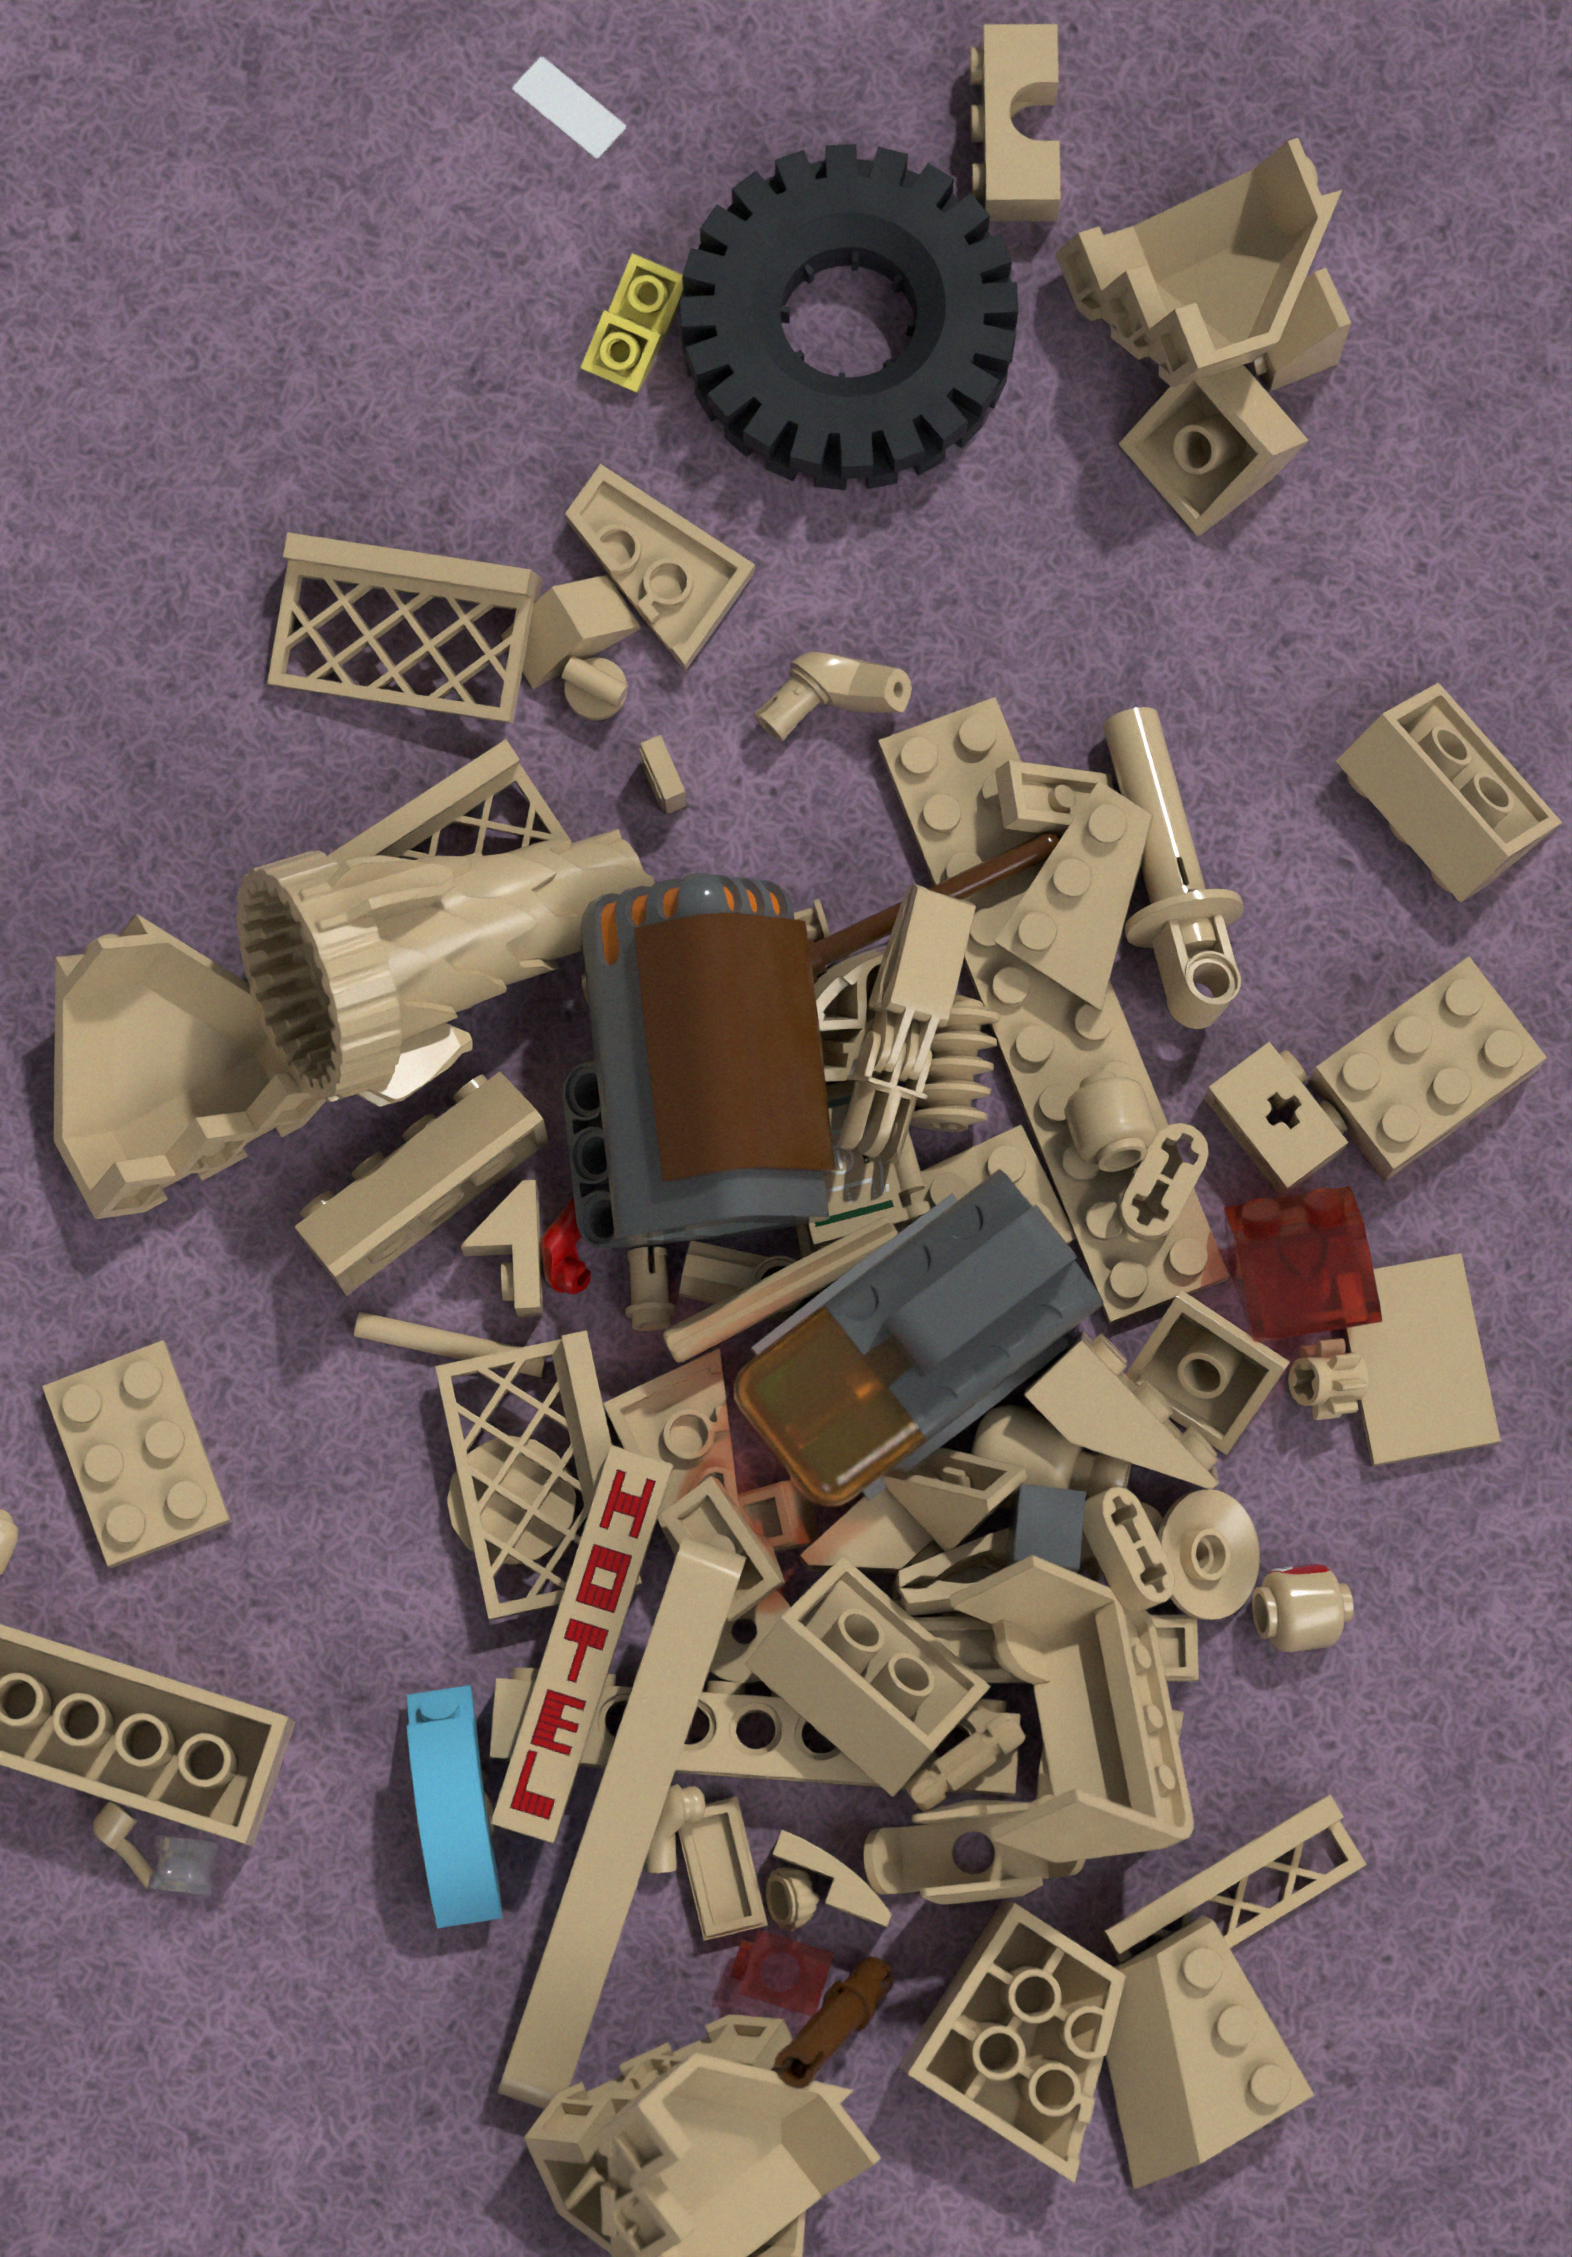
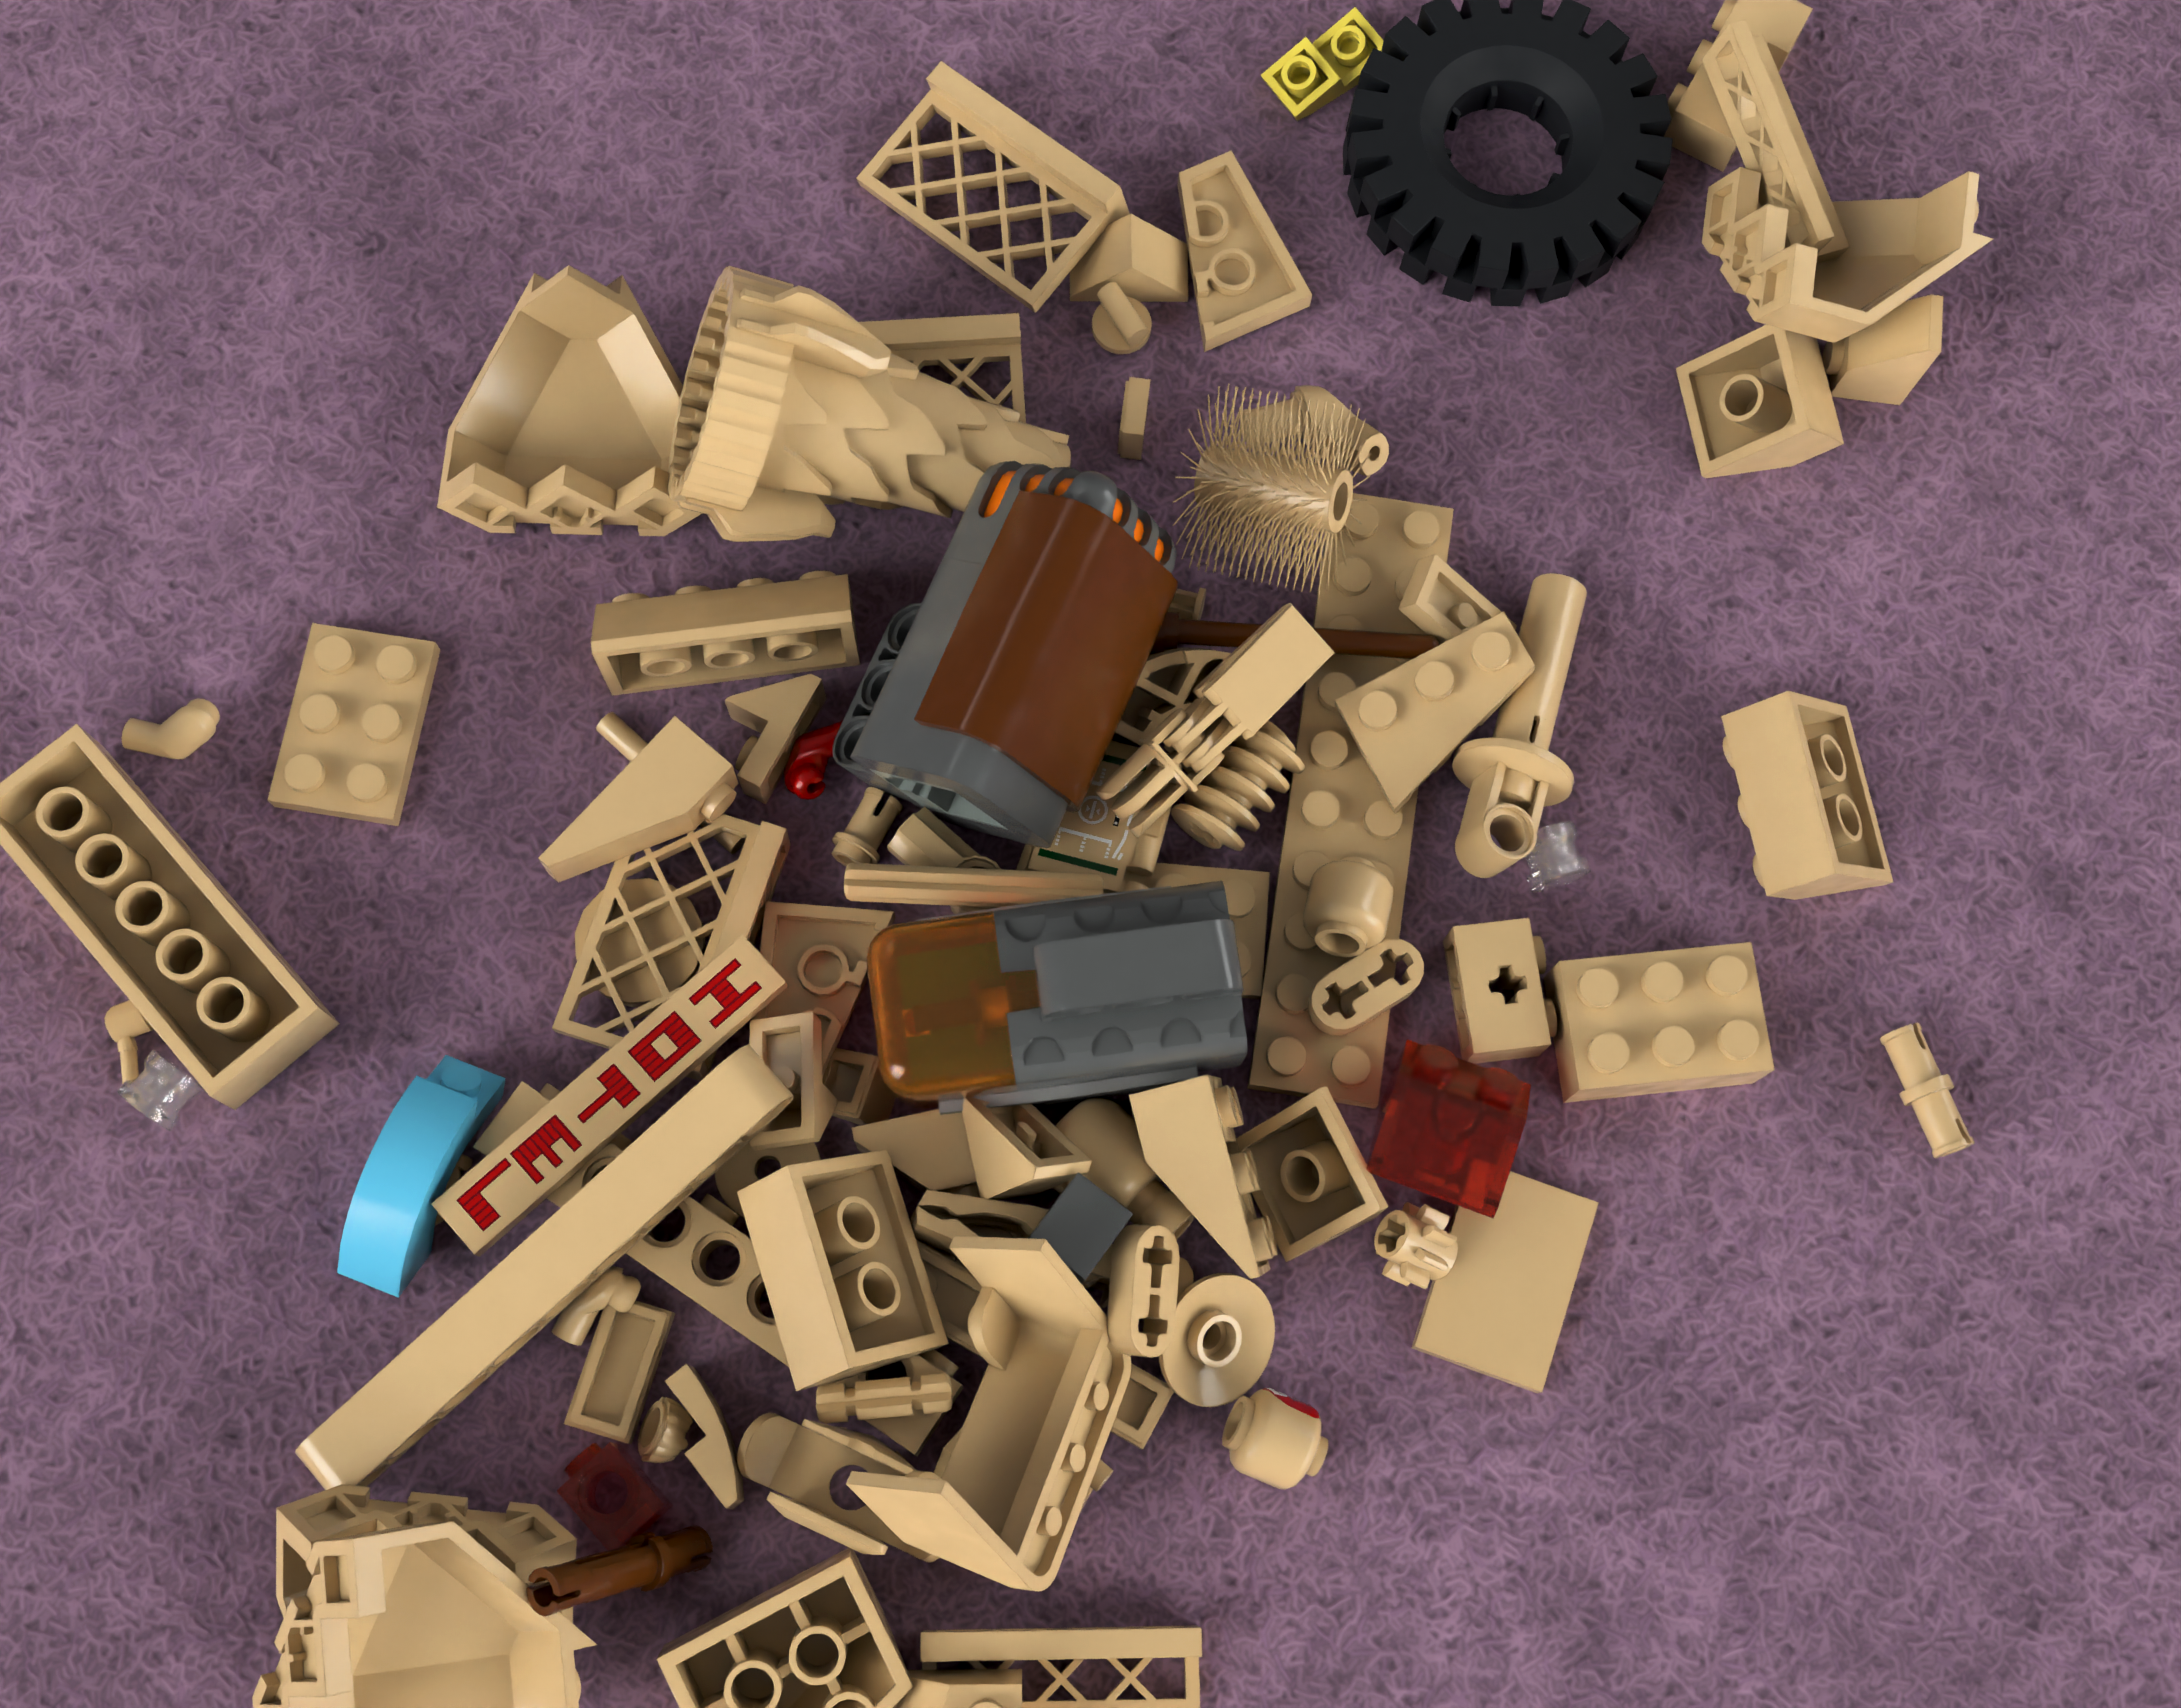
camera: 25 degrees right, 5 degrees down
(460, 1369) = (652, 800): none -> tan slope
(836, 783) = (1273, 488): none -> tan piece
(1098, 191) = (1772, 138): none -> tan fence
(1262, 971) = (1555, 858): none -> clear wheel

